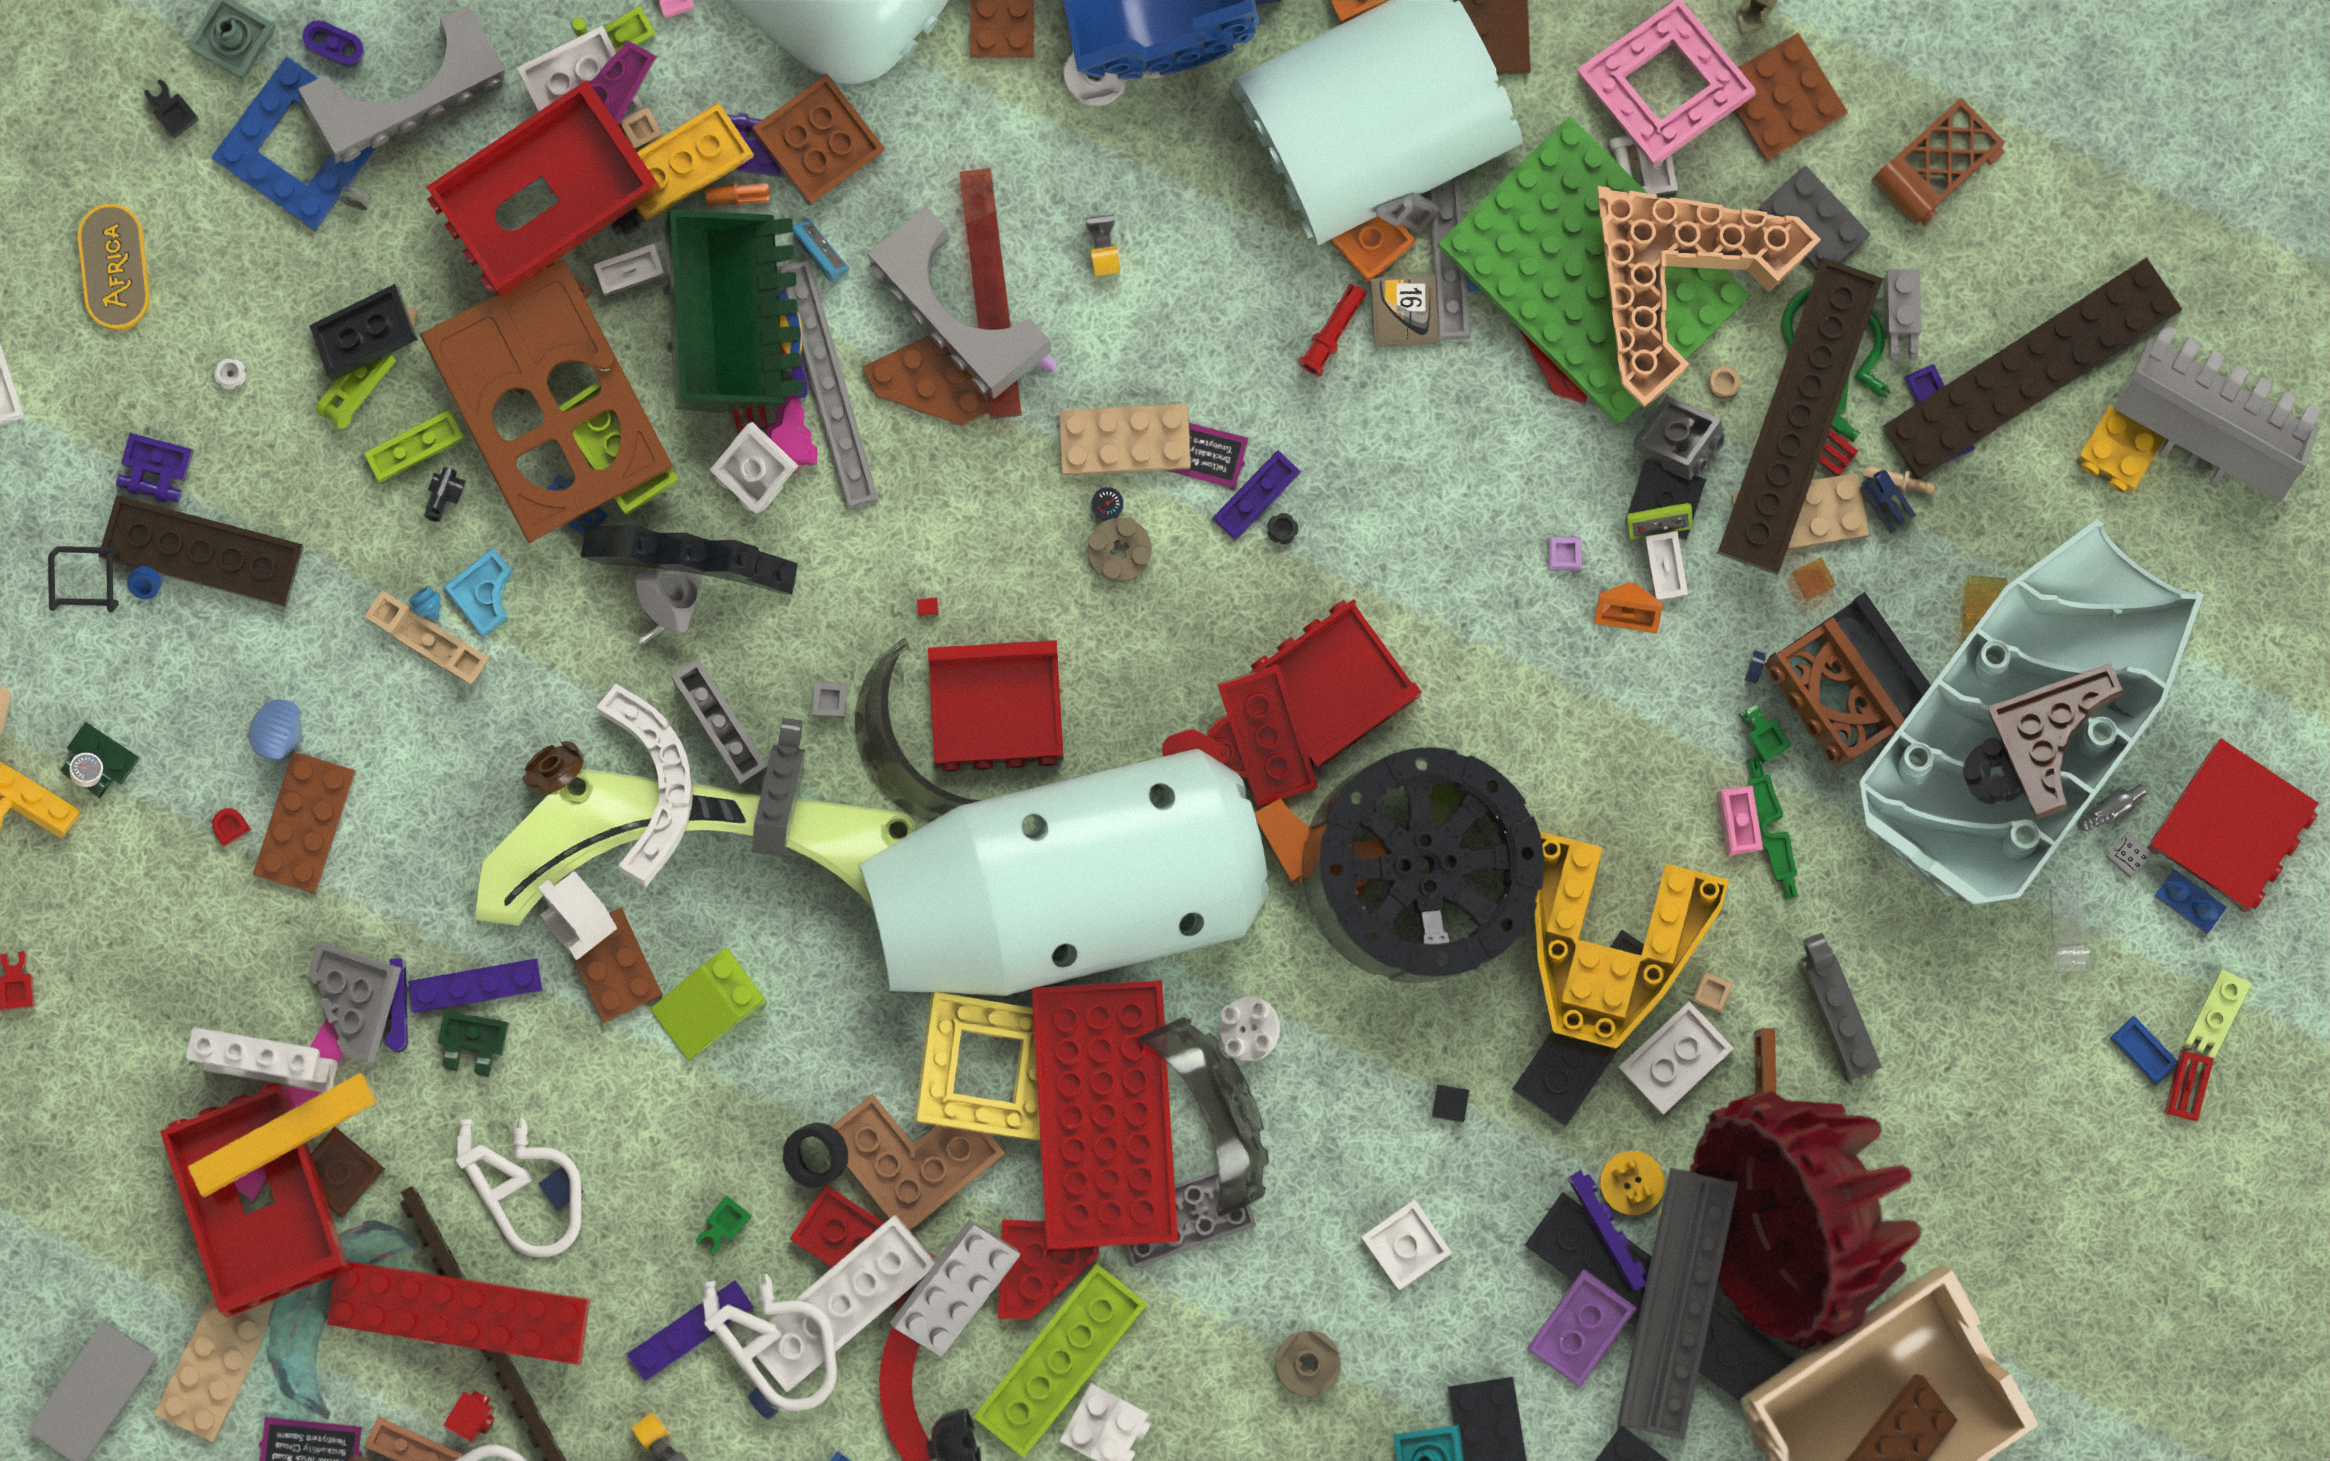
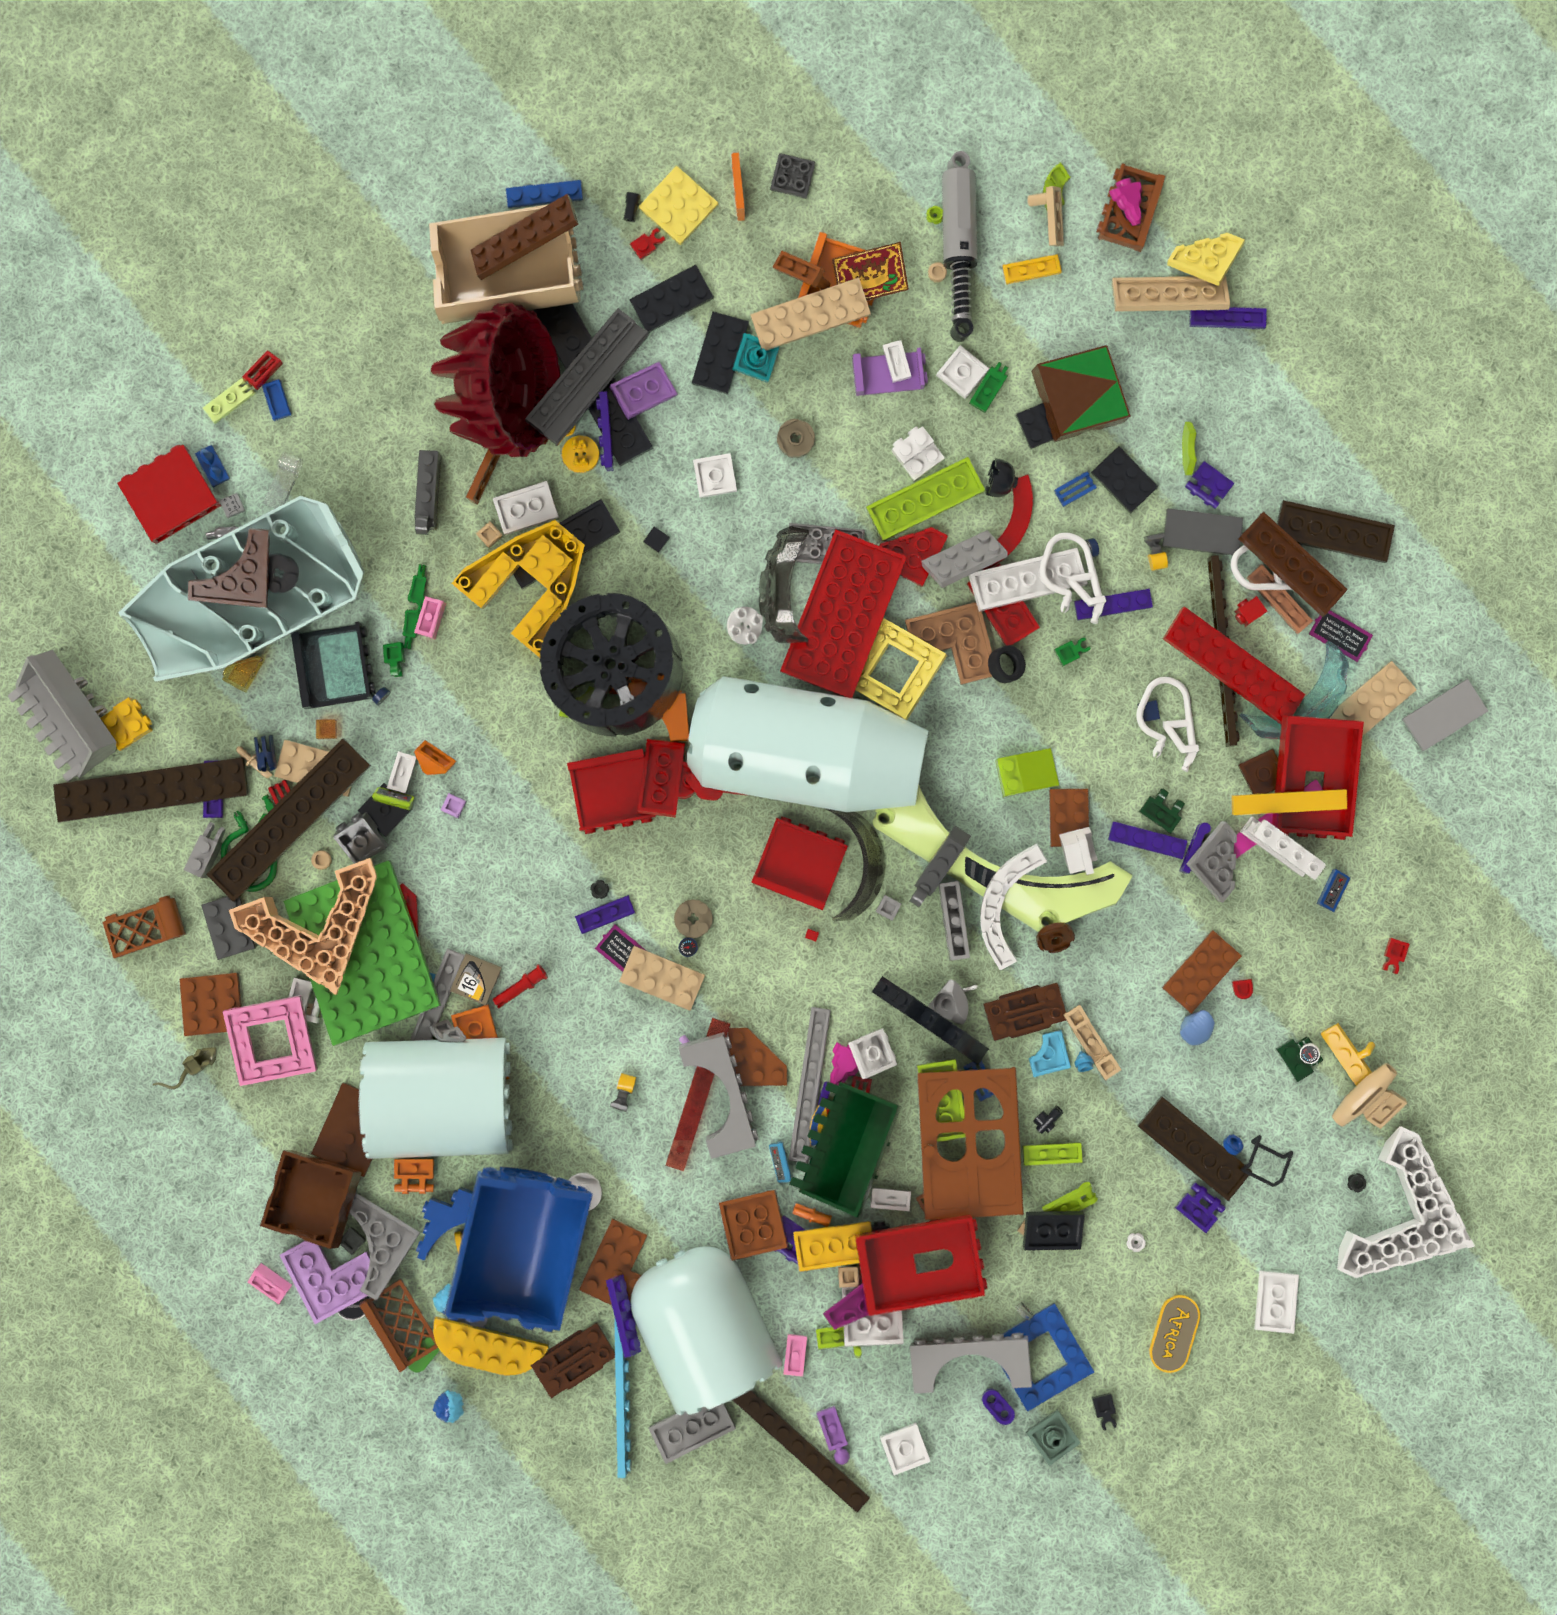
camera: 150 degrees left, 5 degrees up
(152, 1040) = (1333, 890): none -> slope
(550, 640) = (1025, 1011): none -> reddish brown piece
(1852, 669) = (329, 668): dark orange fence -> none

